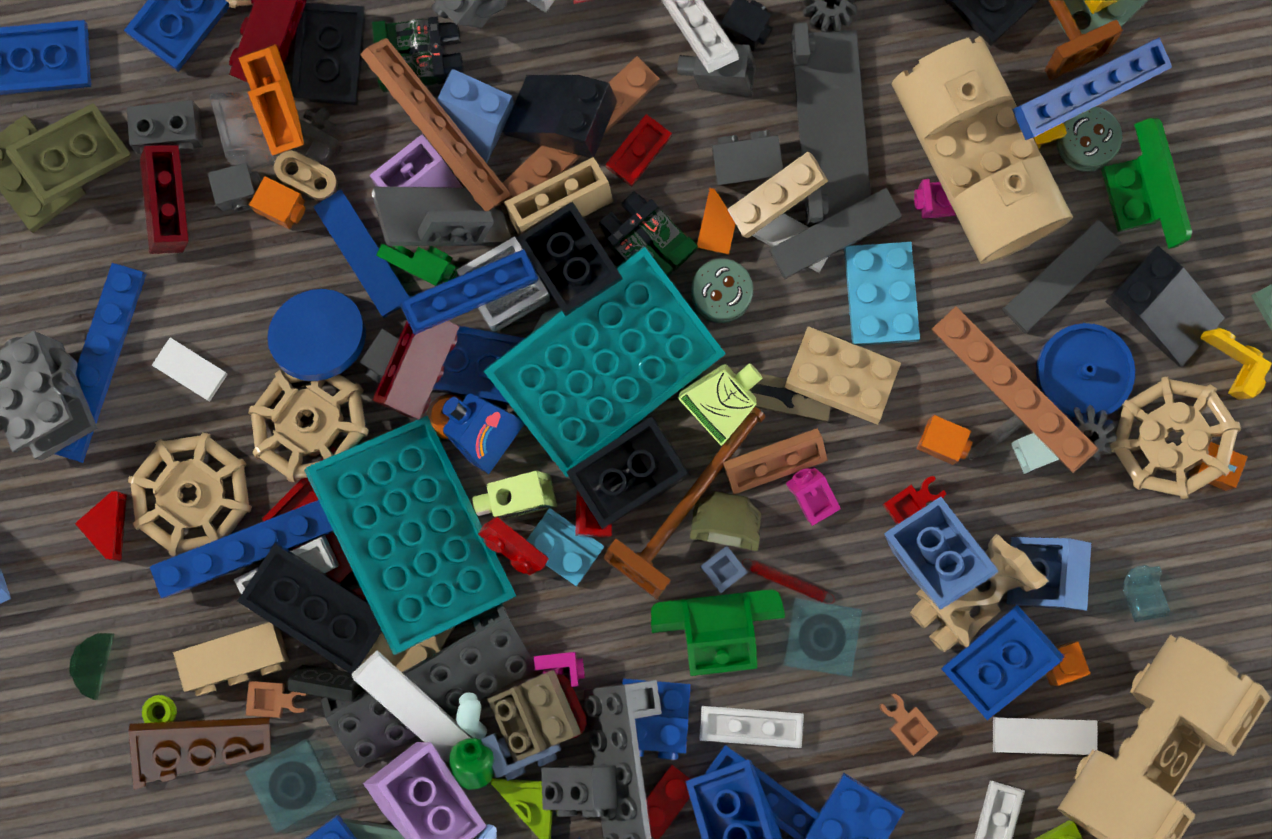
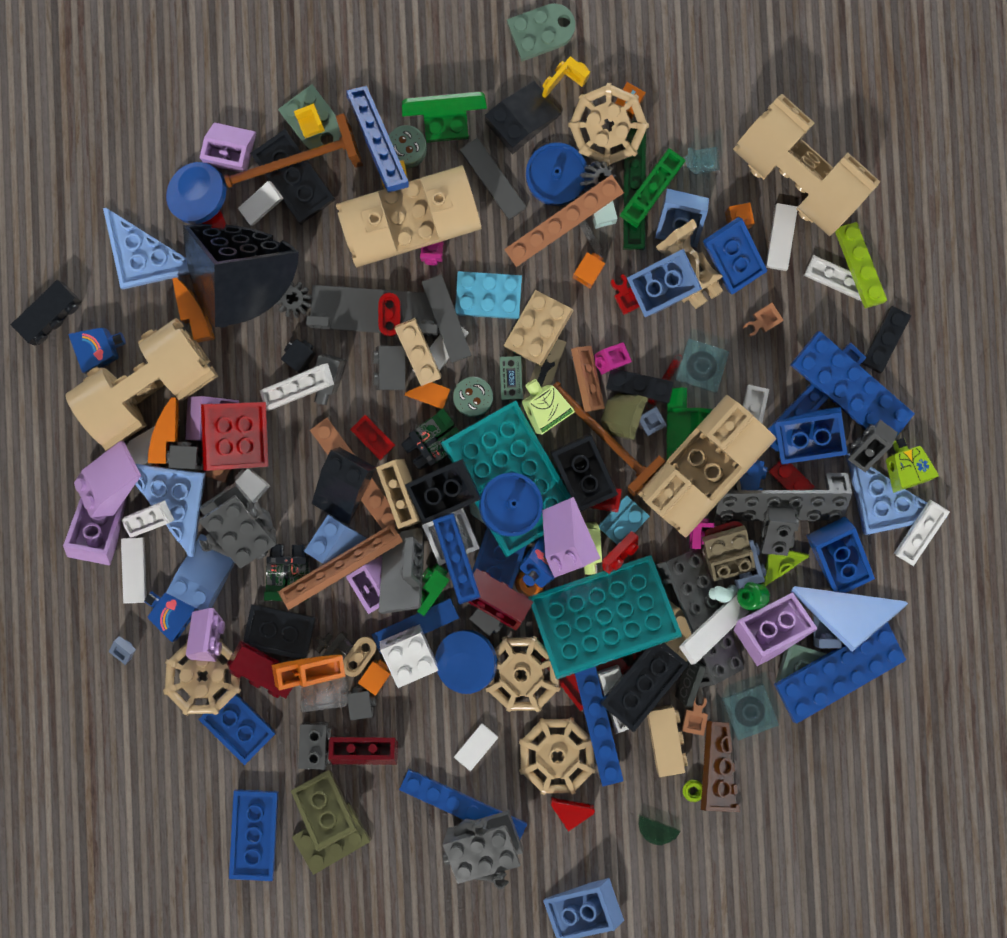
camera: 80 degrees left, 5 degrees up
(314, 246) = (408, 656): none -> white piece
(521, 455) = (567, 538): none -> lavender slope
(563, 365) = (510, 504): none -> blue piece
(663, 656) = (706, 465): none -> tan cylinder
(759, 345) = (511, 378): none -> sand green tile
(776, 543) = (641, 385): none -> black plate
(827, 143) = (389, 315): none -> red plate
(1072, 496) = (633, 178): none -> dark green tile
(1088, 520) = (652, 188): none -> green plate

